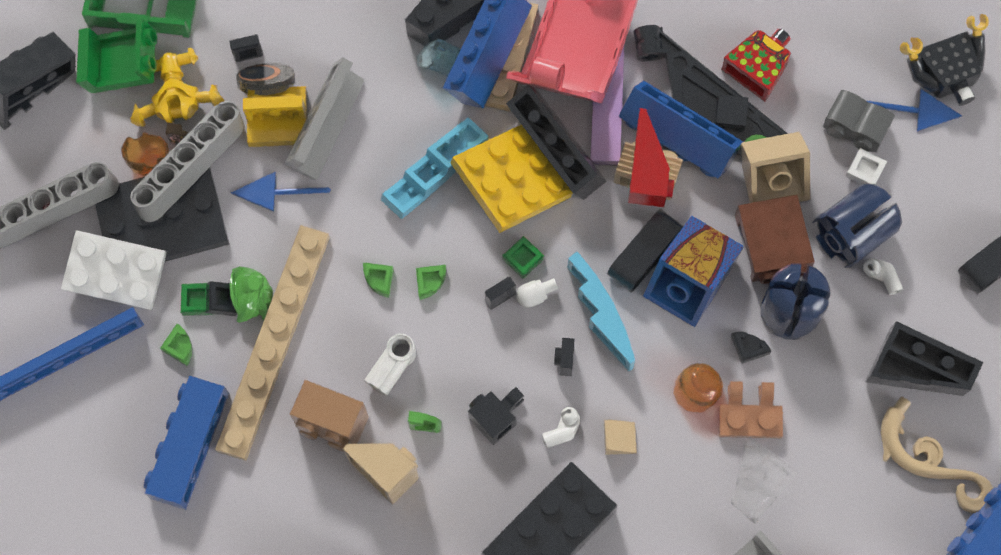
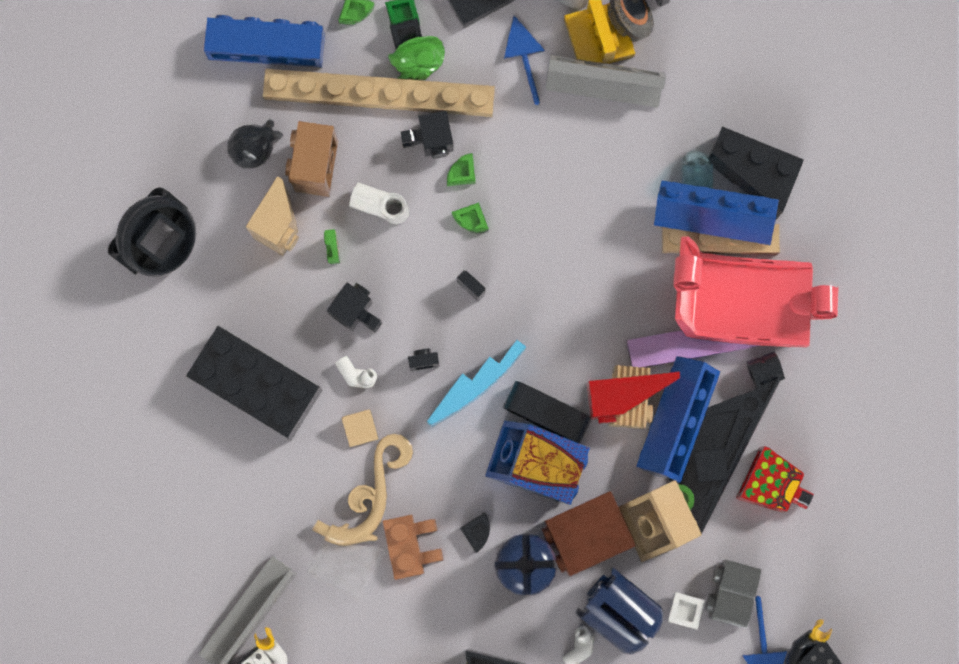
camera: 70 degrees right, 10 degrees up
(293, 480) = (252, 144): none -> black piece
(334, 294) = (433, 134): none -> black brick
(432, 169) = (582, 195): medium azure slope -> none
(510, 178) = (588, 269): yellow plate -> none
(523, 257) = (514, 299): green tile -> none
(535, 292) = (481, 318): white cylinder -> none
(556, 142) = (631, 303): black brick -> none
(693, 435) = (342, 535): none -> tan plant
(698, 387) = (425, 491): clear orange hair -> none

